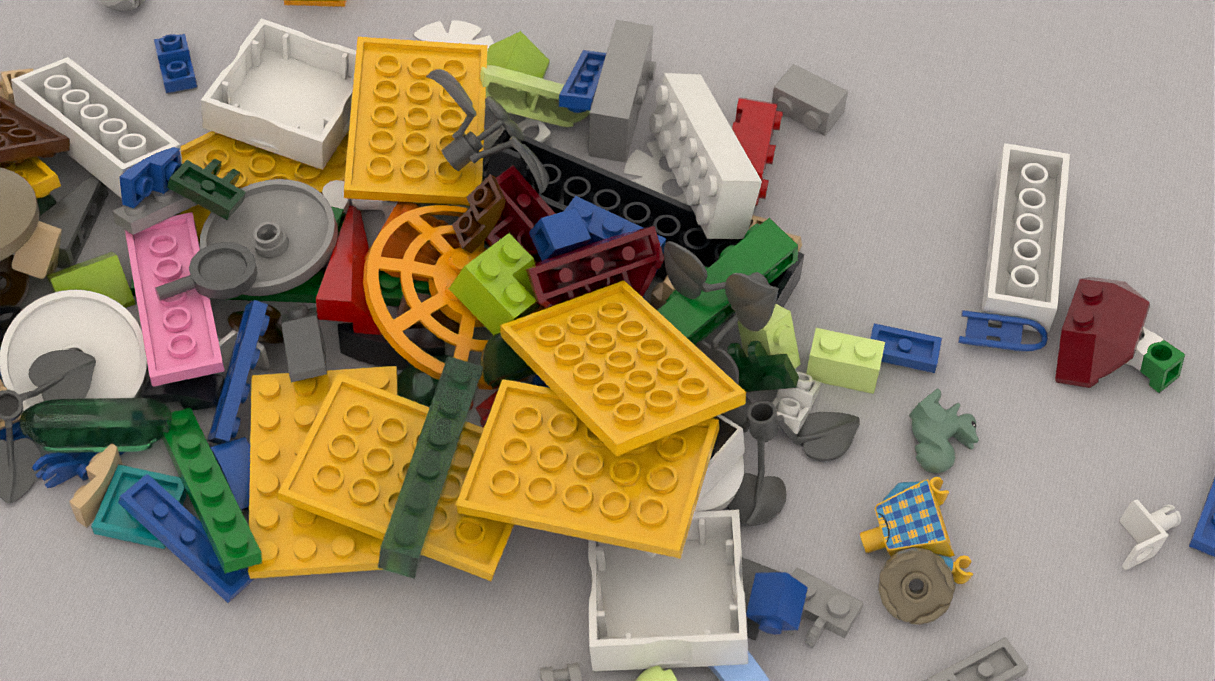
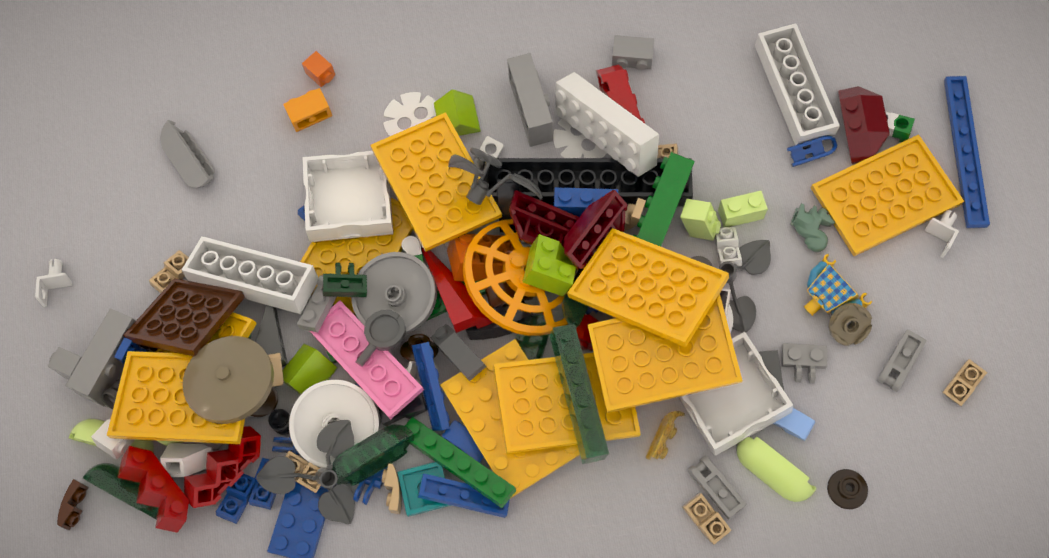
camera: 20 degrees left, 15 degrees up
(149, 176) = (308, 293): blue slope -> none
(175, 63) = (259, 204): blue slope -> none
(484, 212) = (516, 229): reddish brown slope -> none
(528, 96) = (485, 126): yellowish green brick -> none
(541, 601) = (665, 431): none -> clear yellow piece
(559, 233) = (564, 219): blue brick -> none
(582, 82) = (508, 103): blue plate -> none
(747, 294) = (701, 218): dark grey plant -> none
(761, 370) = (707, 239): dark green hinge -> none
(776, 602) = (788, 371): blue brick -> none
(908, 347) = (768, 183): blue plate -> none
(1084, 443) = (886, 195): none -> yellow plate

